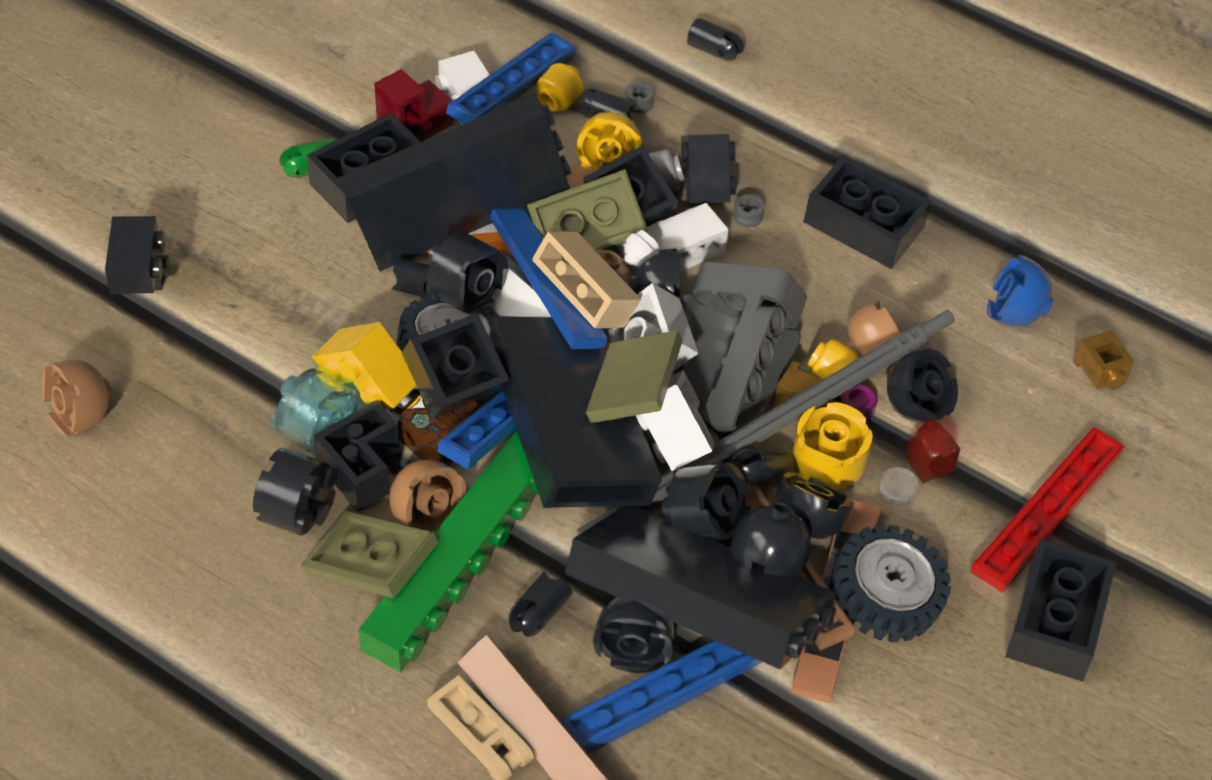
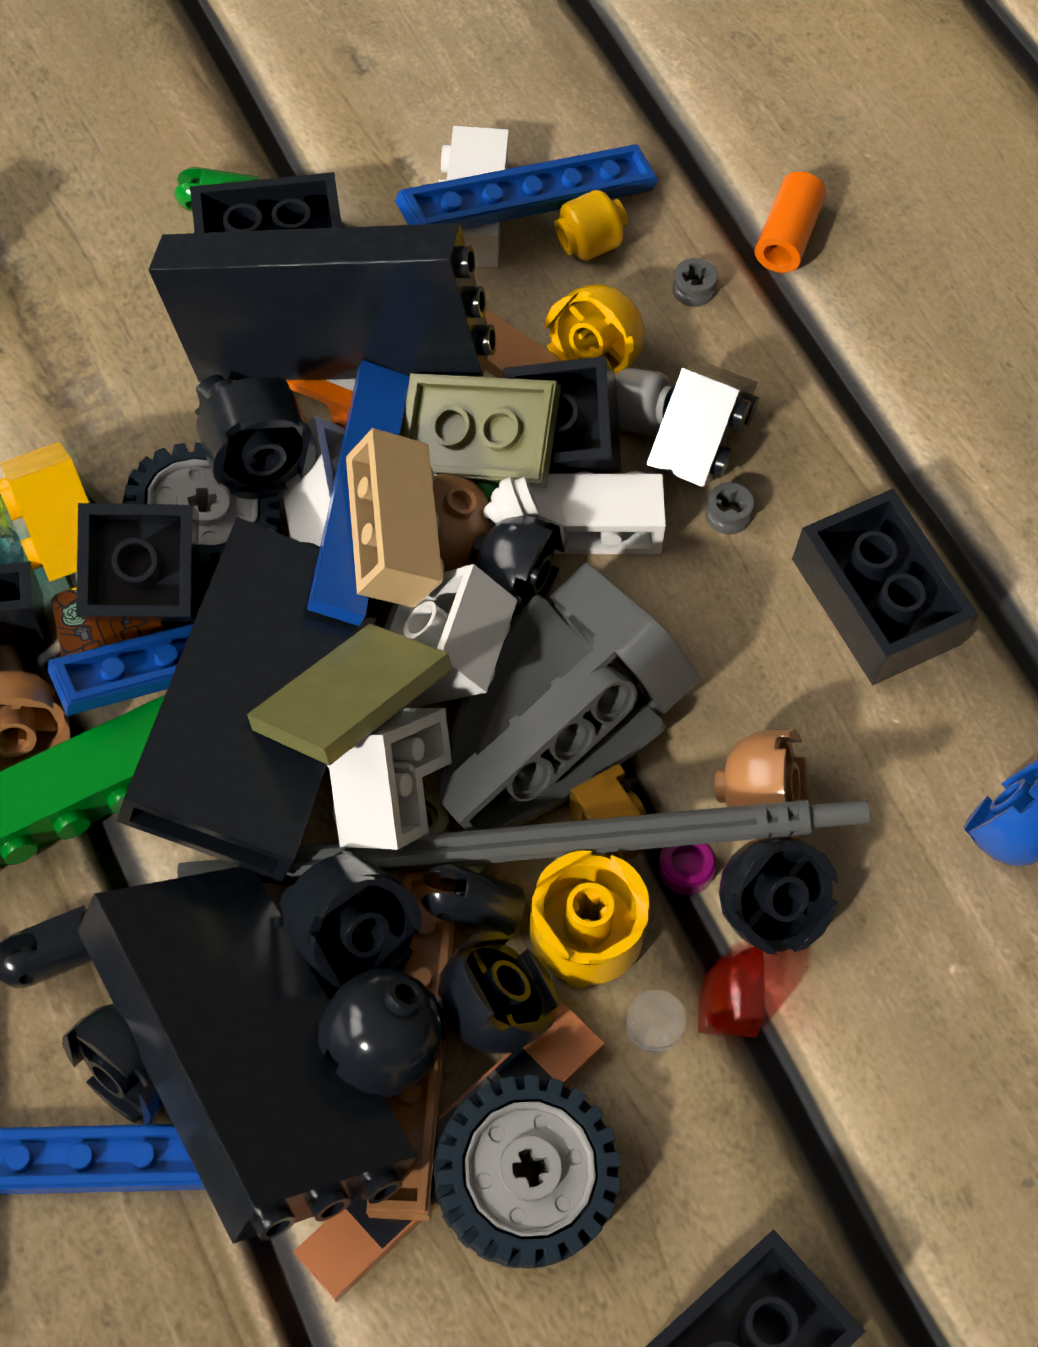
camera: 30 degrees right, 10 degrees up
(415, 105) = (371, 177): dark red brick -> none
(600, 101) = (637, 279): black piece -> none
(673, 41) = (790, 222): none -> orange brick
(715, 40) = (851, 241): black piece -> none
(830, 358) = (681, 786): yellow head -> none
(1047, 509) = (850, 1170): red tile -> none

